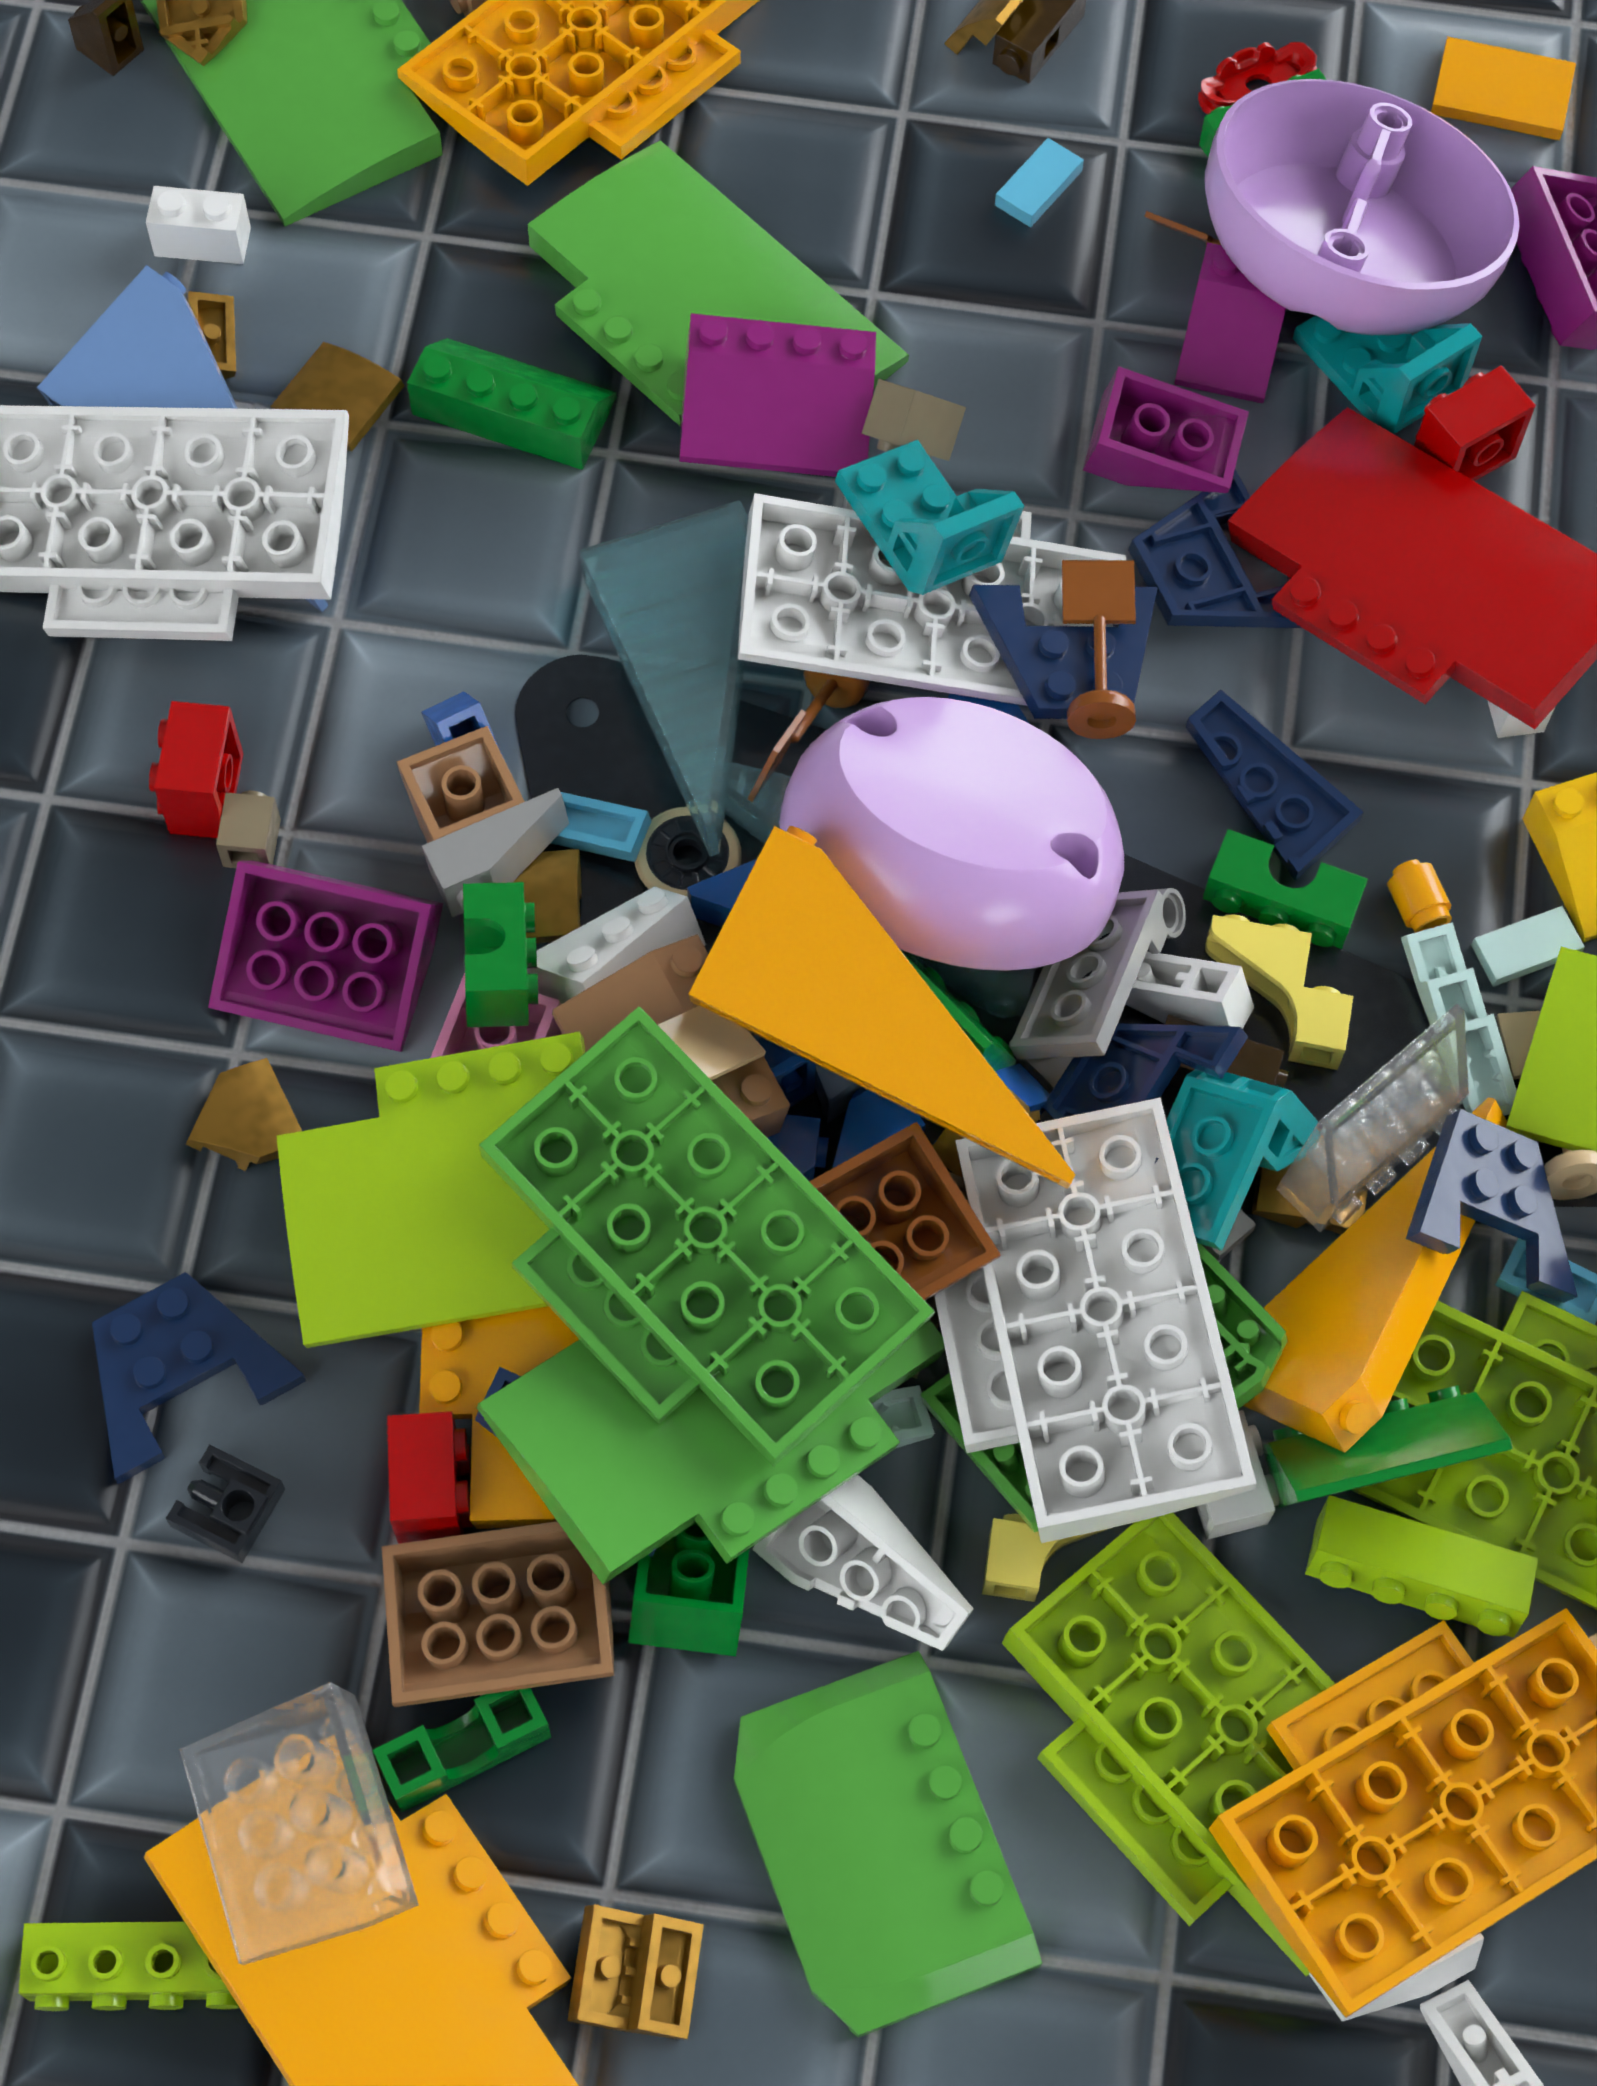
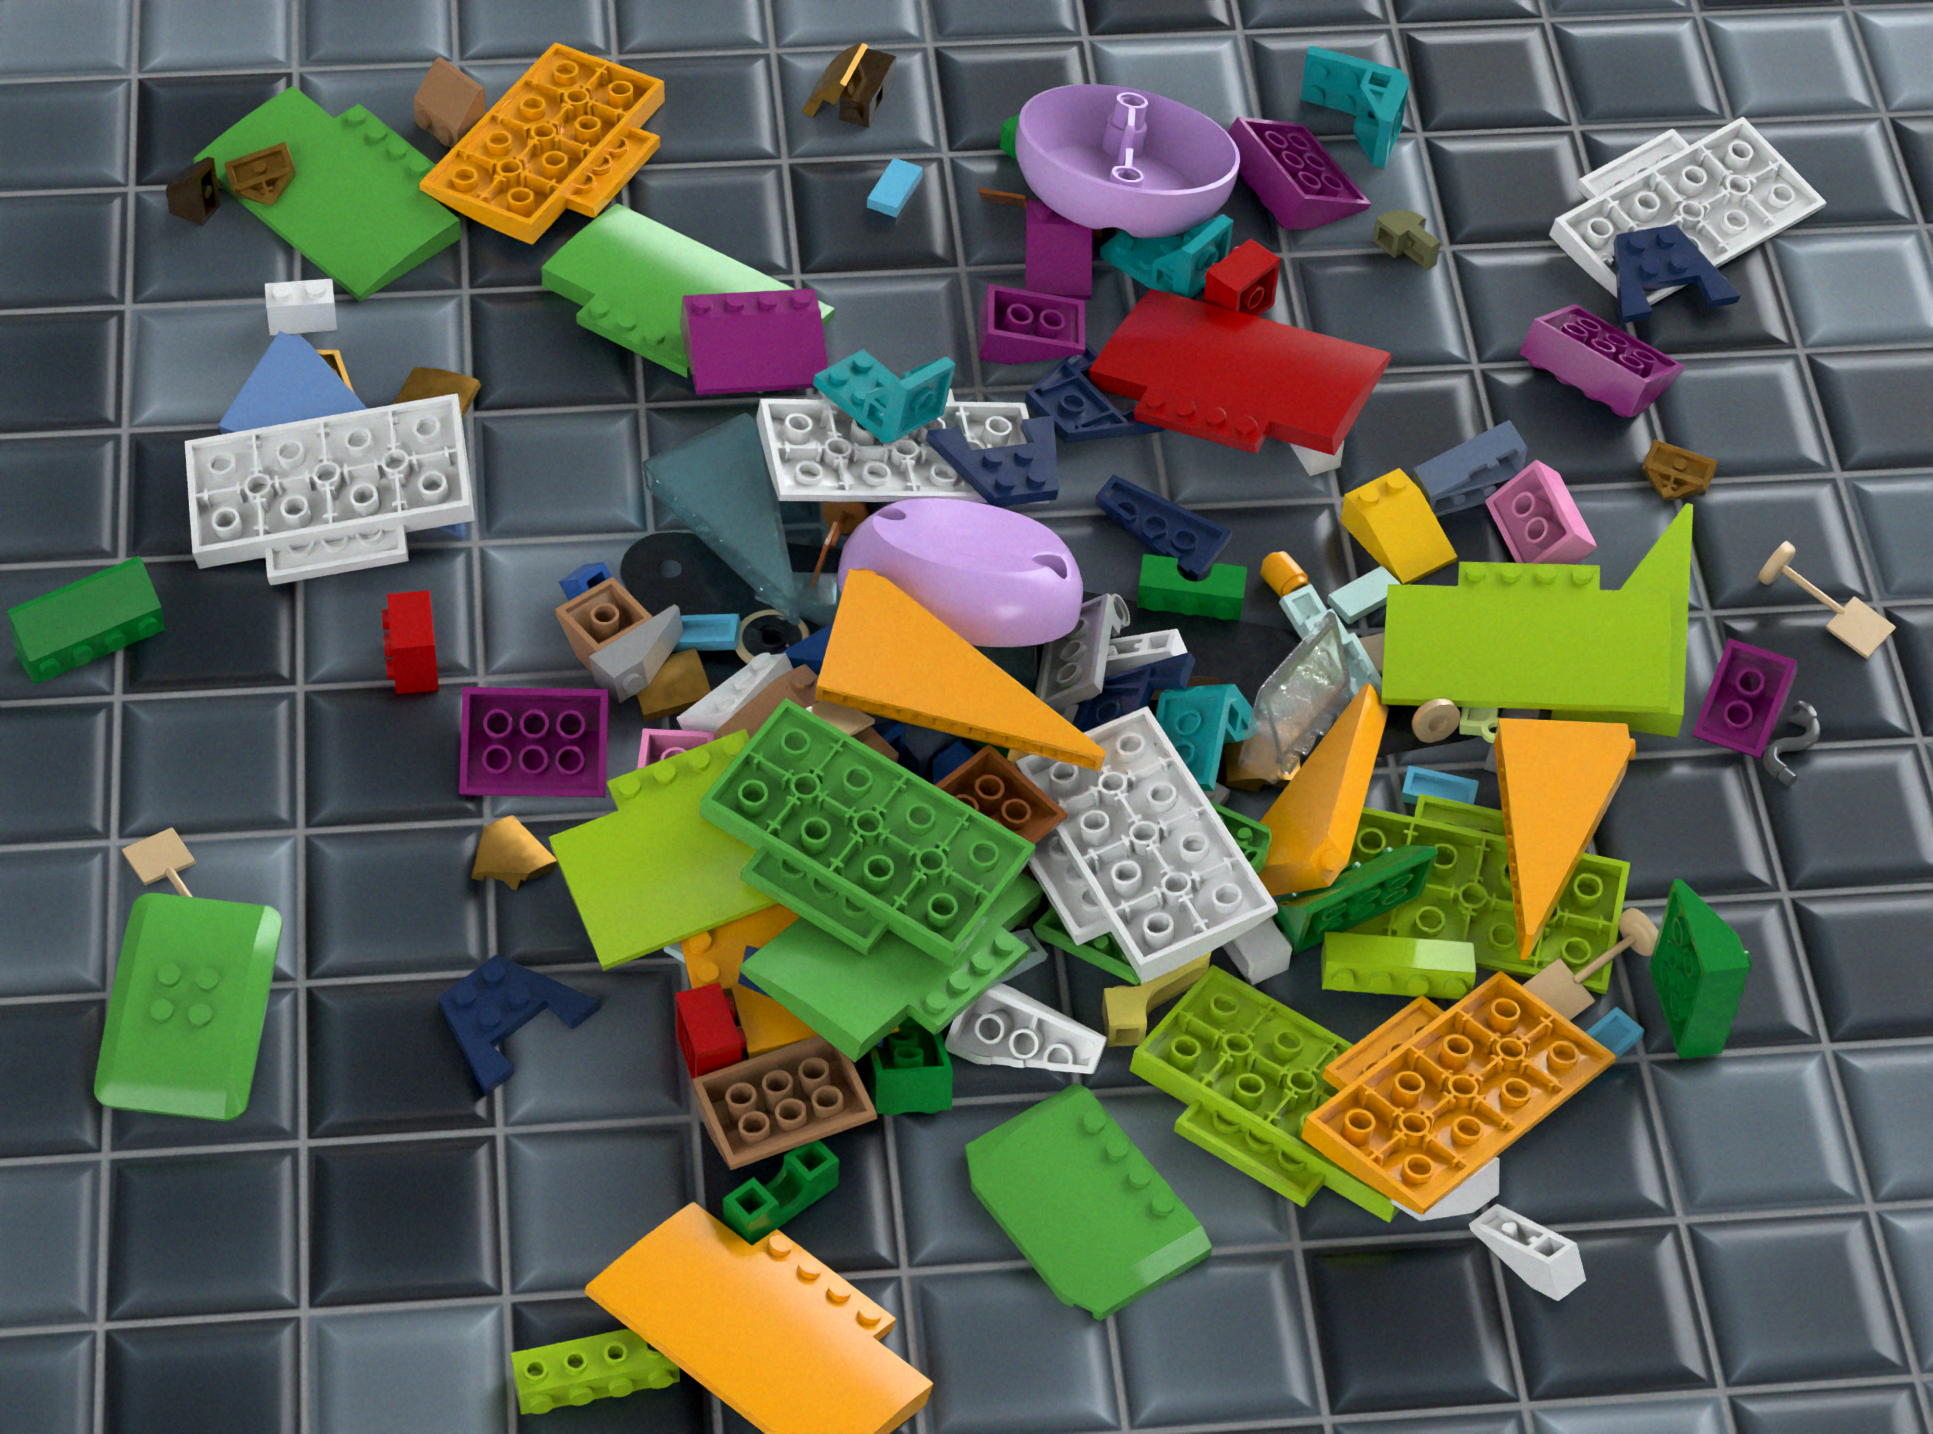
camera: 15 degrees left, 15 degrees down
(244, 1485) = (574, 1105): black brick -> none
(248, 828) = (454, 673): dark tan brick -> none
(298, 1825) = (687, 1246): clear slope -> none
(499, 954) = (669, 711): green arch -> none
(509, 401) = (559, 384): green slope -> none
(635, 1972) = (938, 1308): pearl gold slope -> none
(905, 415) = (850, 334): dark tan brick -> none
(1099, 595) = (1018, 423): dark orange piece -> none
(1252, 64) = (1022, 90): red piece -> none
(1275, 967) = (1199, 626): light yellow arch -> none
(1498, 1182) = (1388, 727): wing -> none
(1503, 88) = (1202, 78): light orange tile -> none

